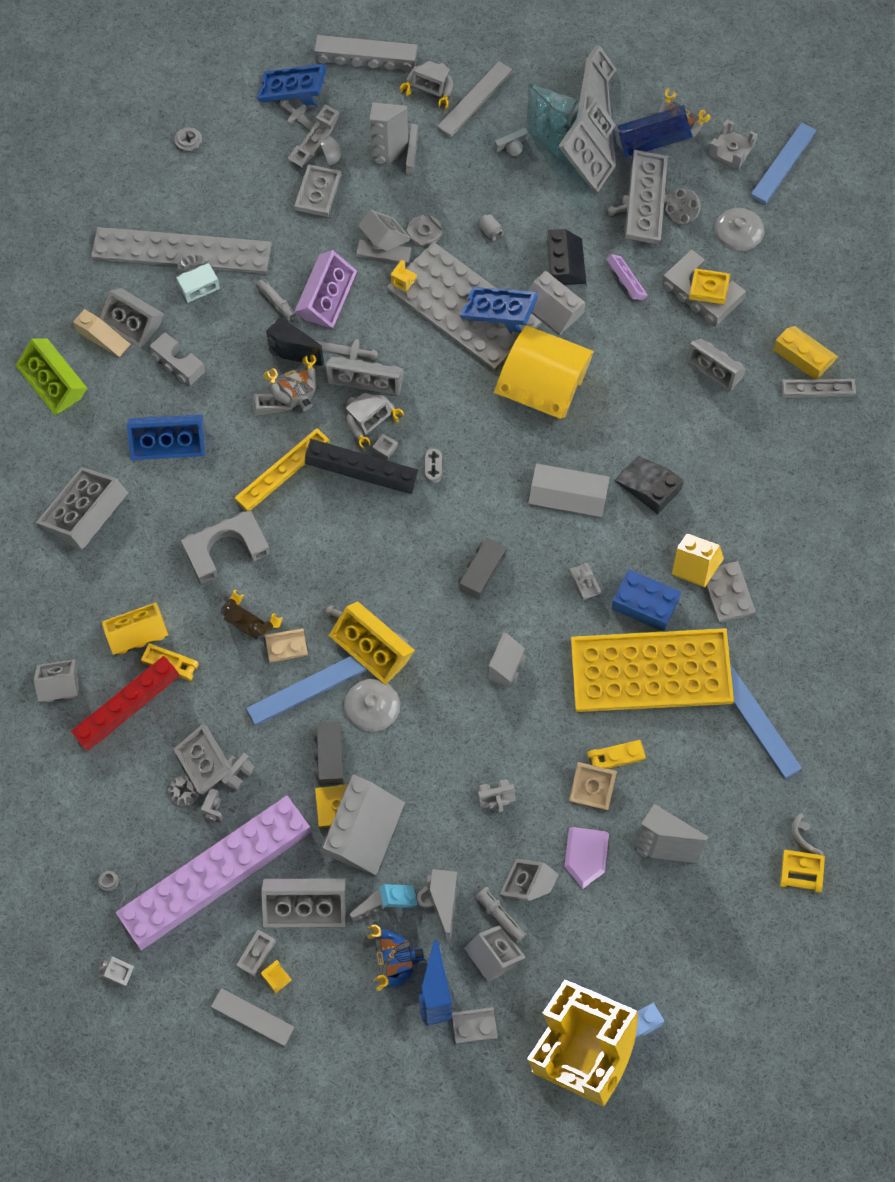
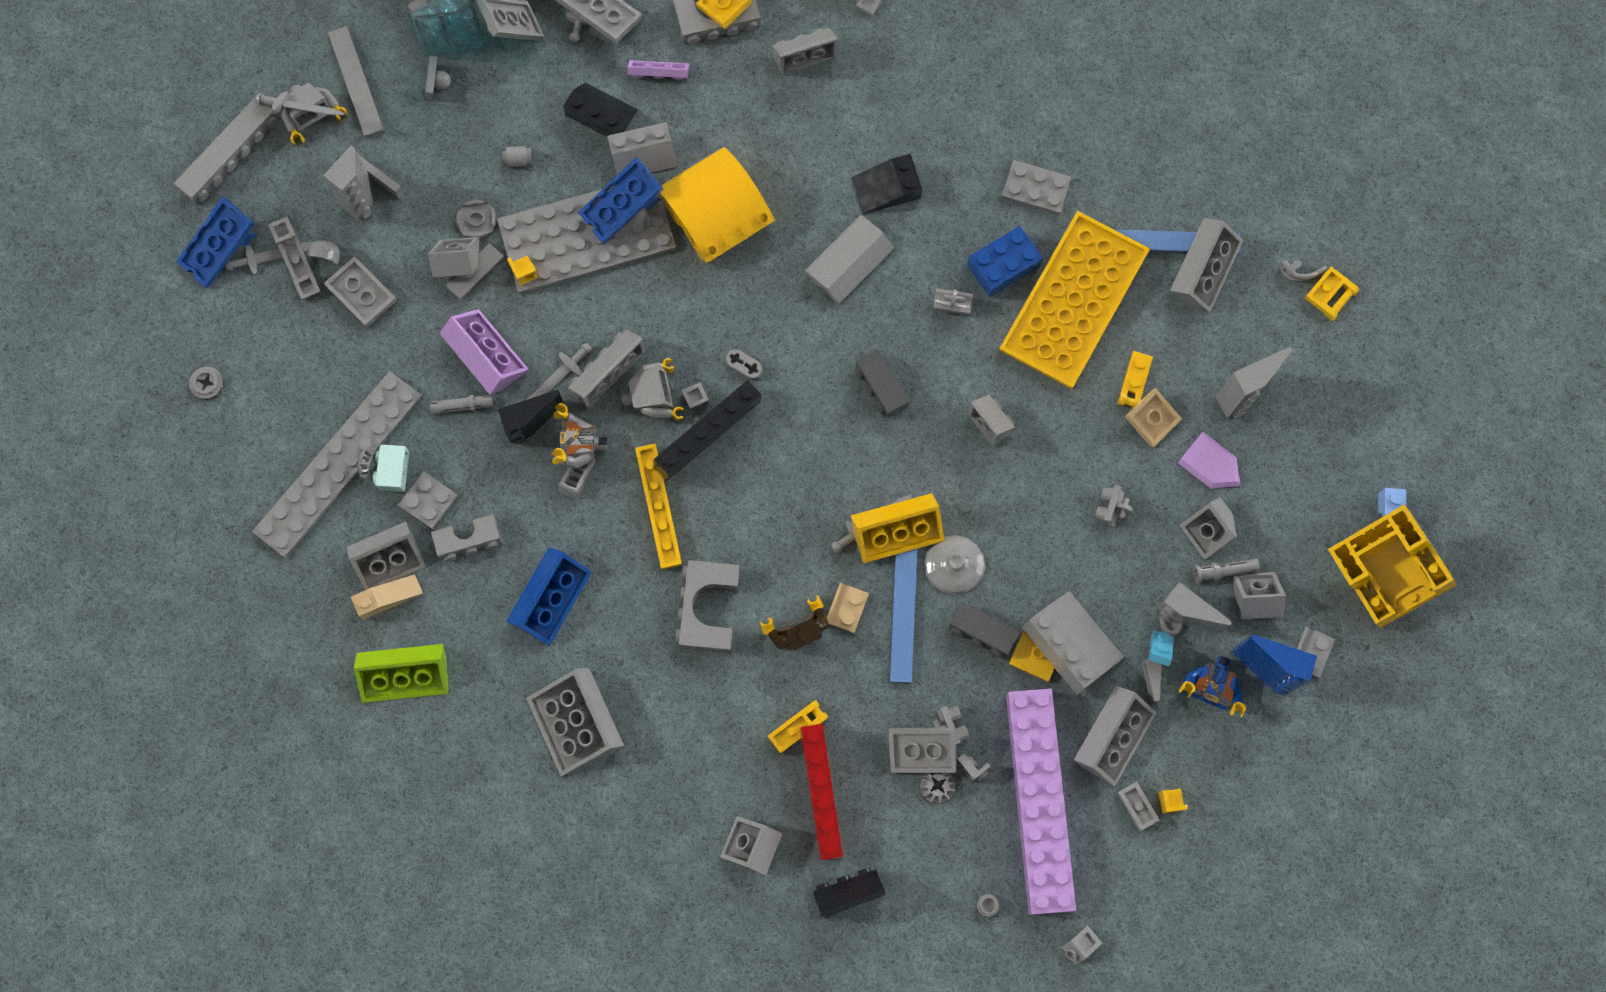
camera: 60 degrees left, 10 degrees up
(57, 768) = (848, 892): none -> black slope
(134, 629) = (741, 740): yellow slope -> none
(190, 321) = (428, 500): none -> light grey plate
(252, 1017) = (1195, 843): light grey tile -> none
(422, 60) = (282, 101): none -> light grey sword
(697, 560) = (994, 193): yellow slope -> none
(753, 754) = (1207, 264): none -> light grey slope

